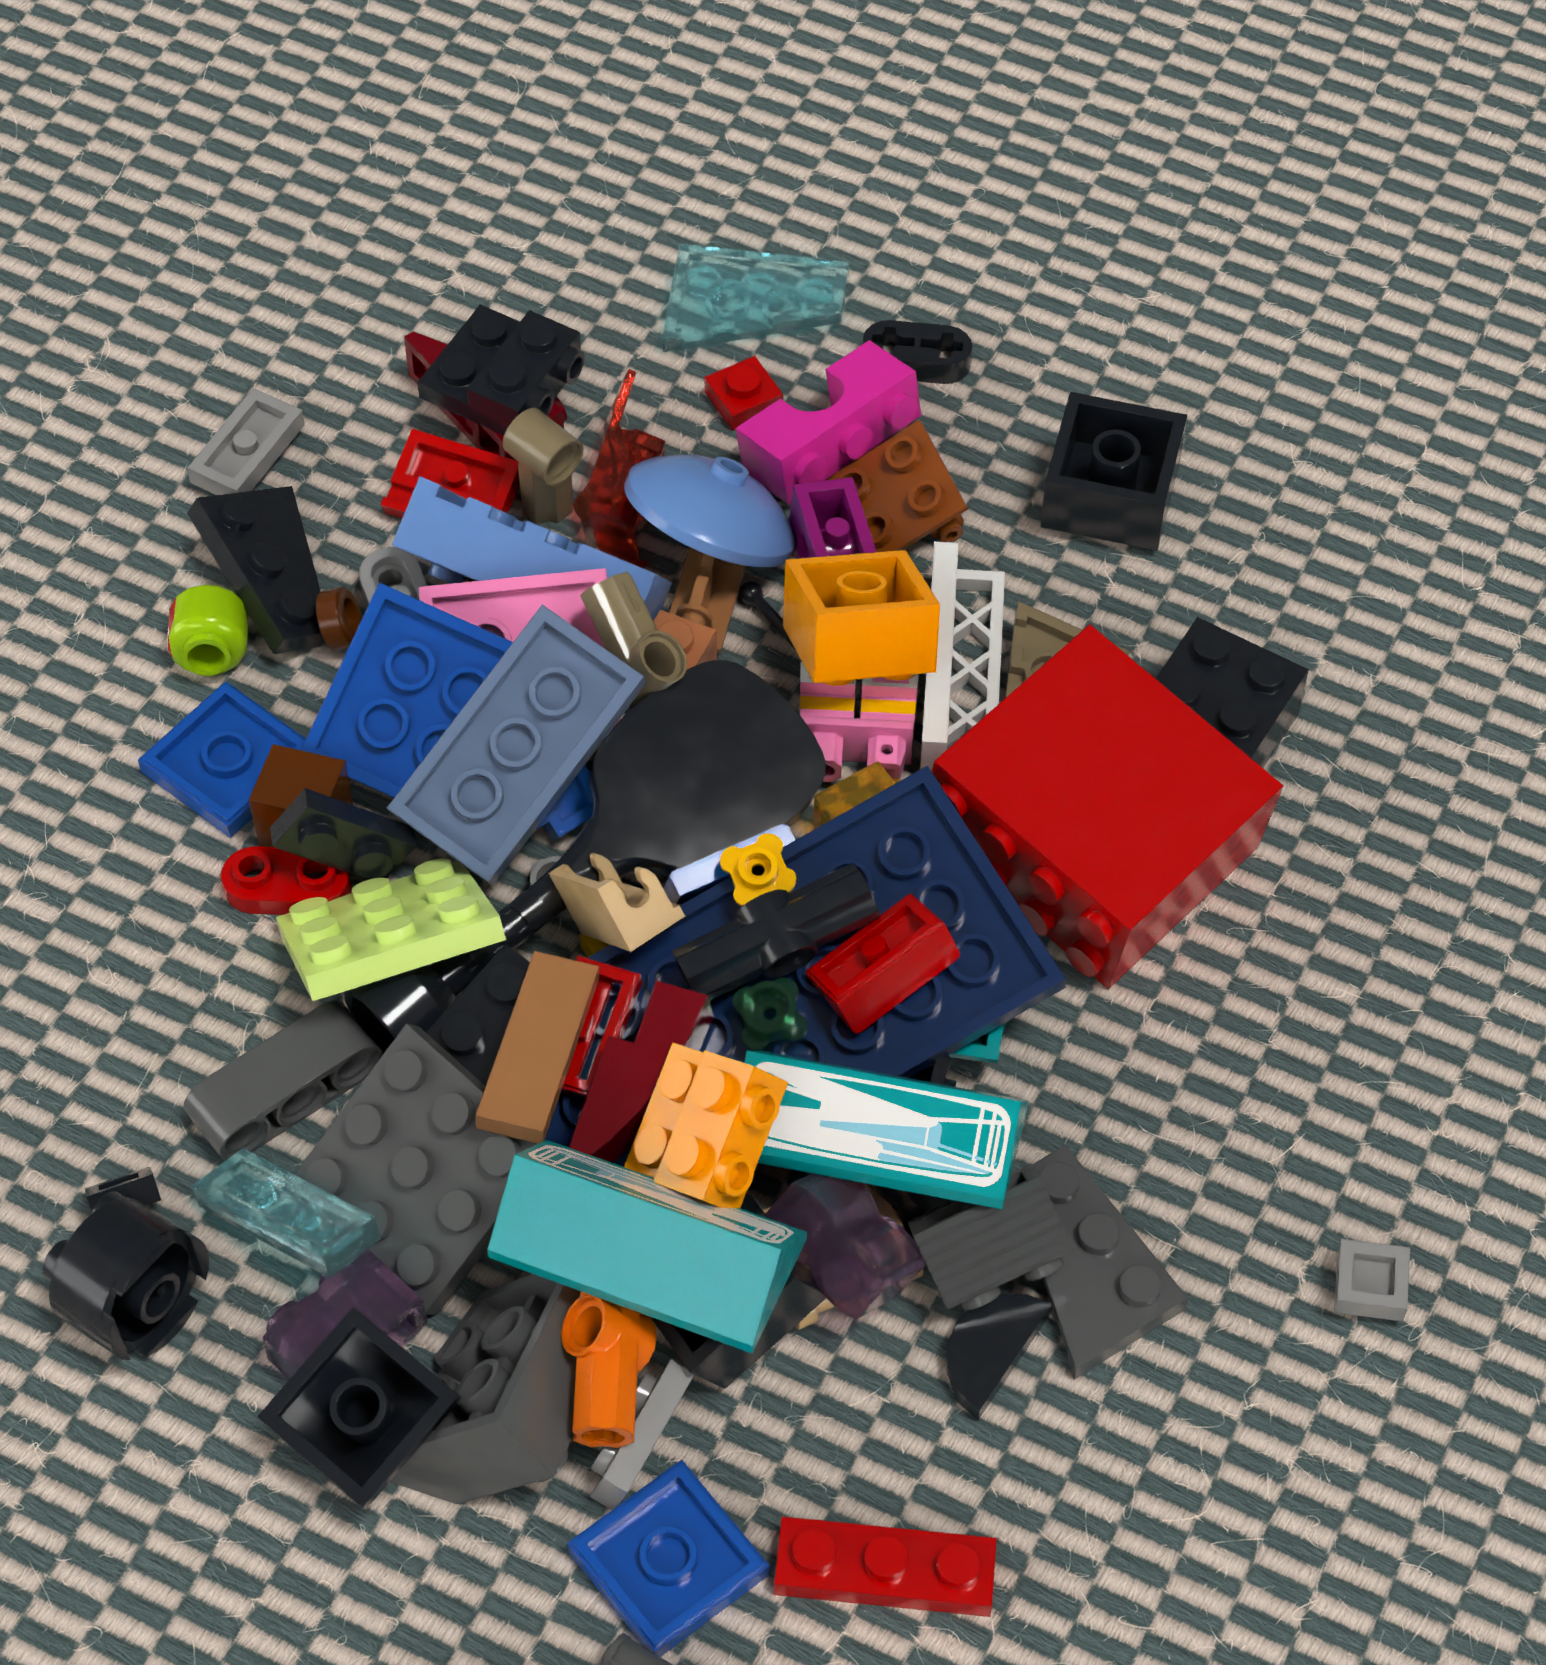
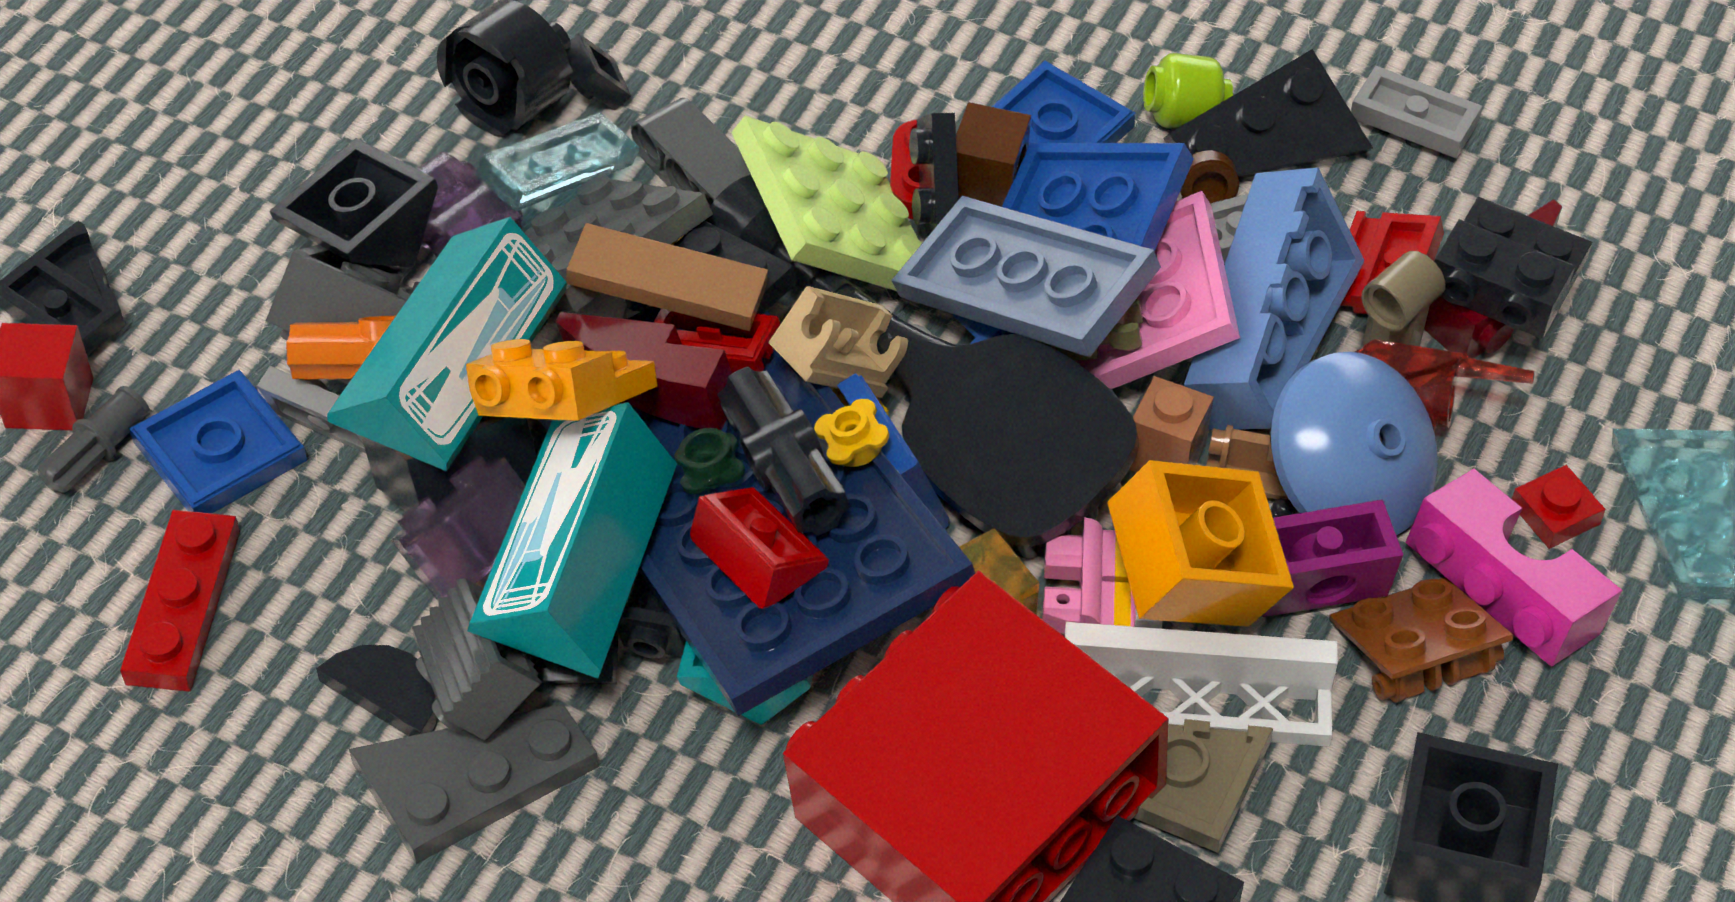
camera: 90 degrees right, 5 degrees down
(632, 635) = (1156, 344): dark tan piece -> none
(921, 346) = (1659, 665): black beam -> none

